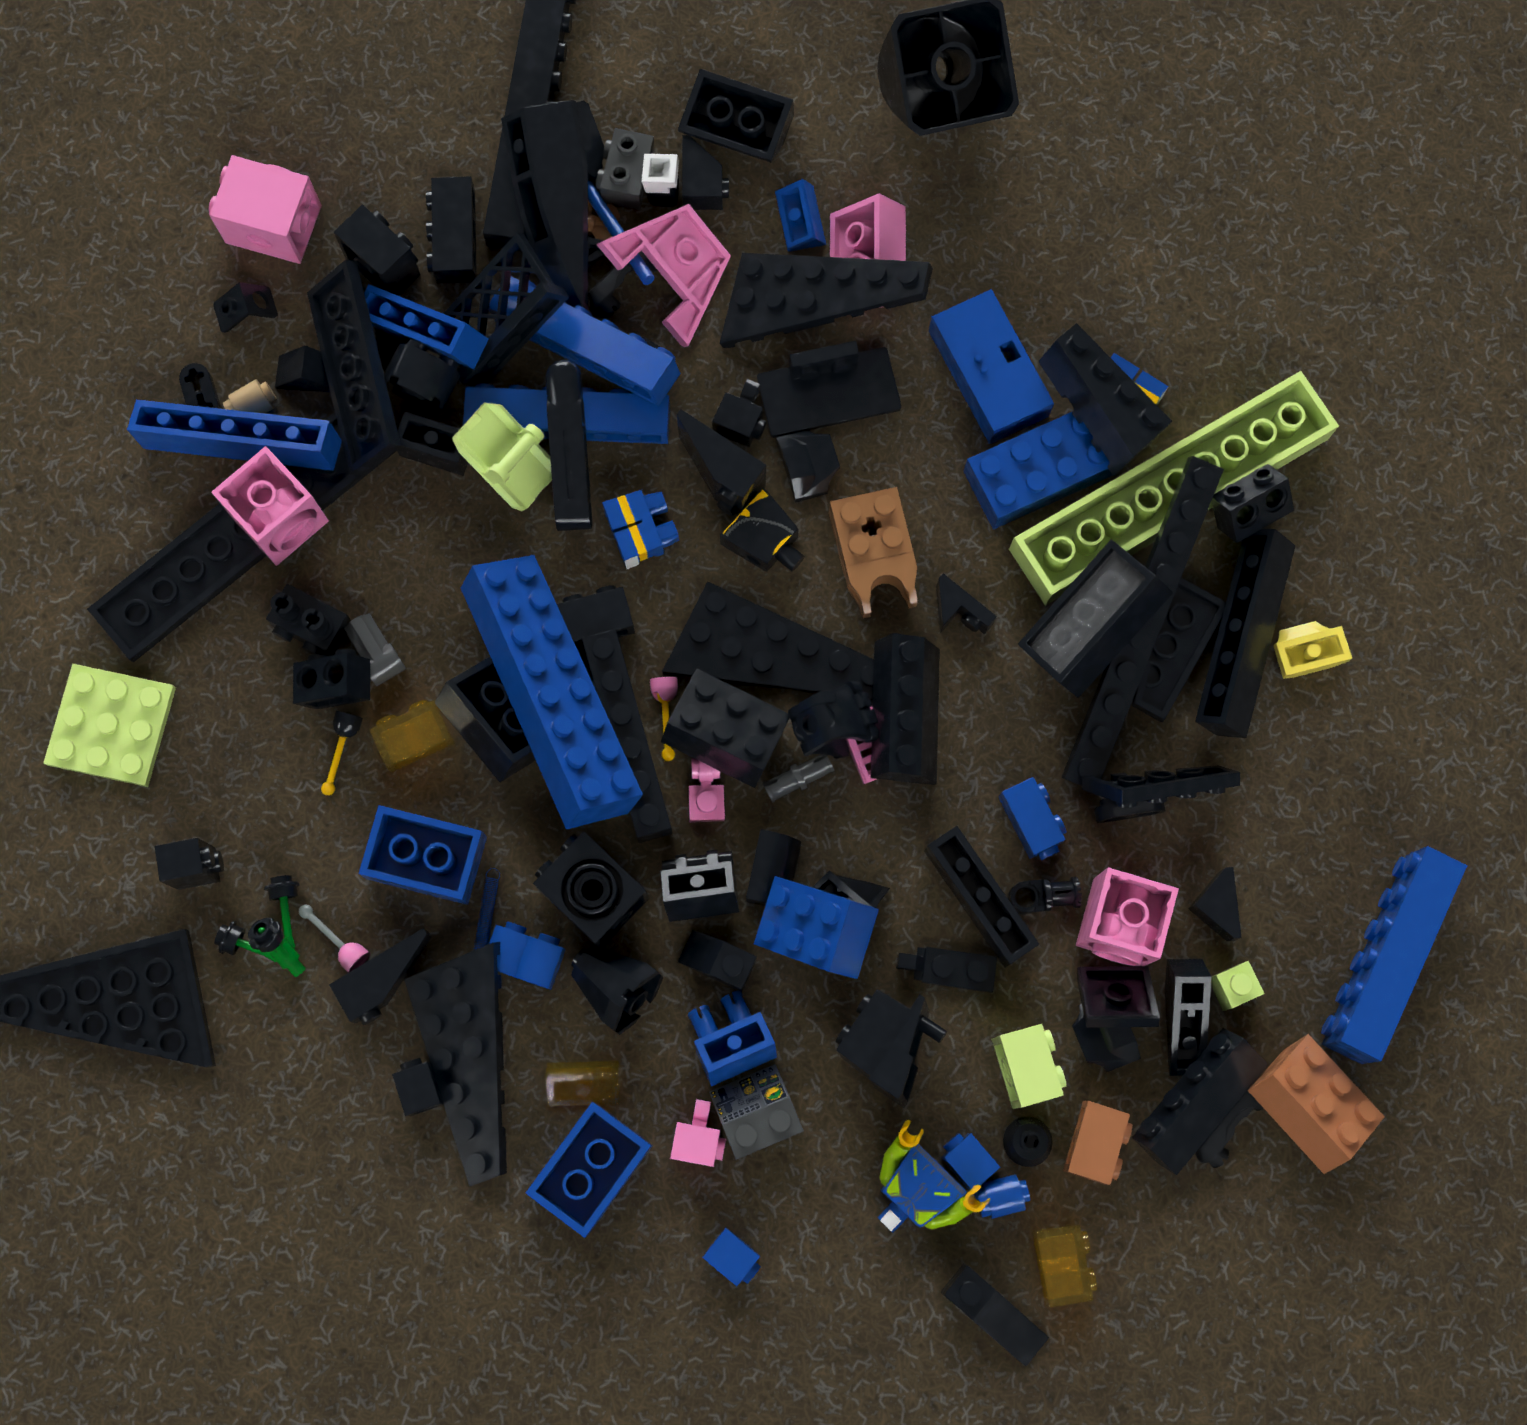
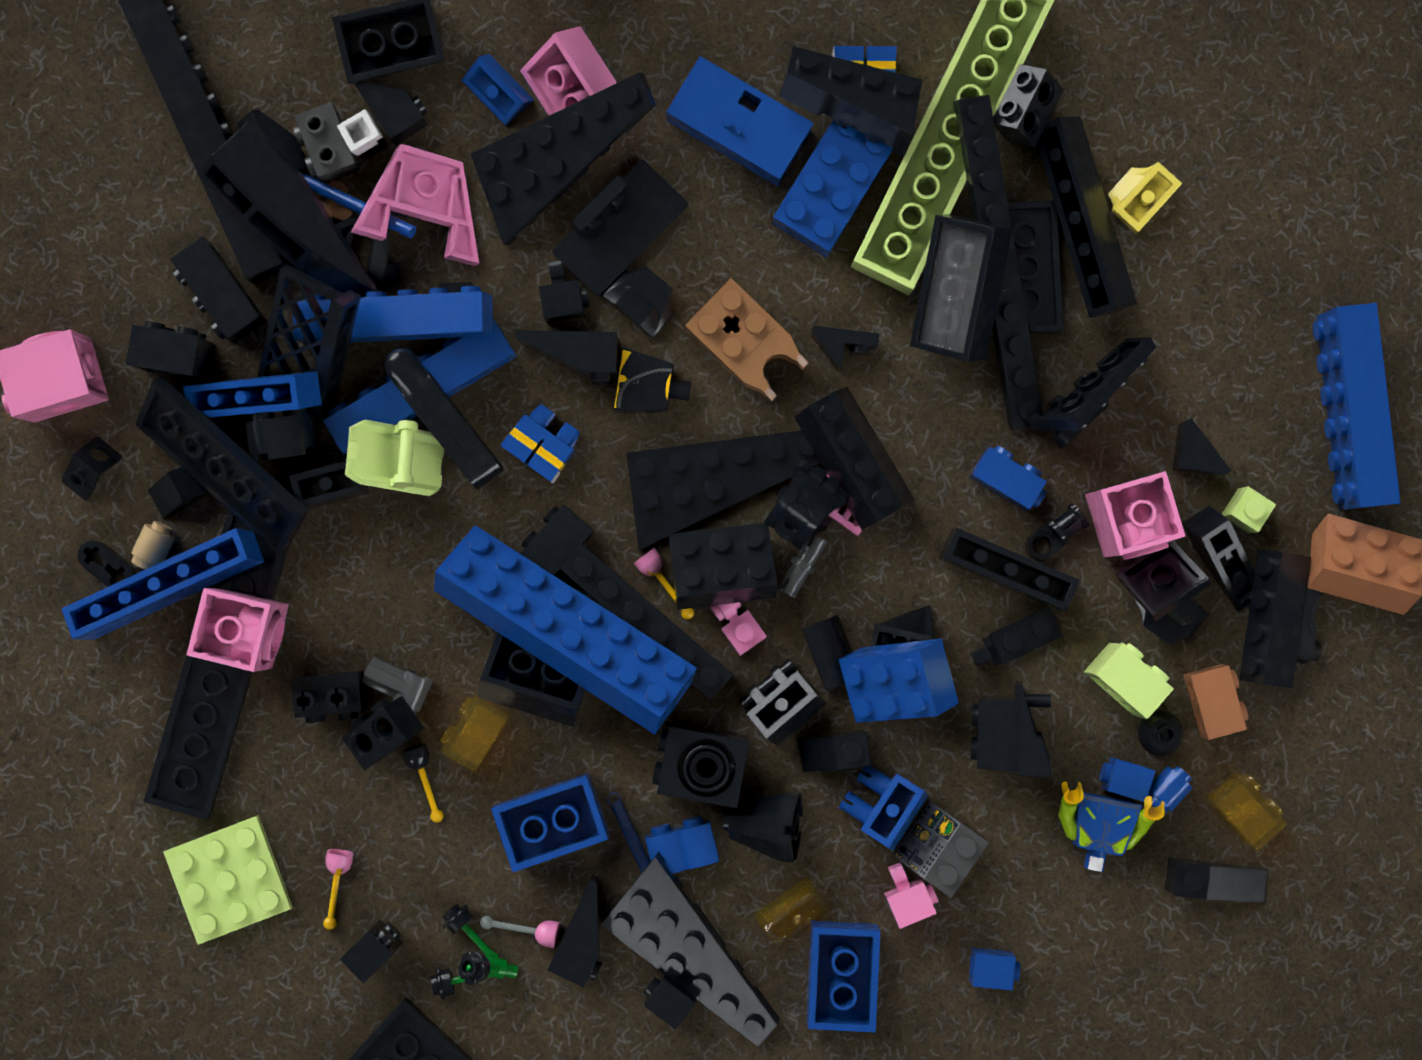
camera: 30 degrees left, 10 degrees up
(213, 773) = (338, 863): none -> hinge

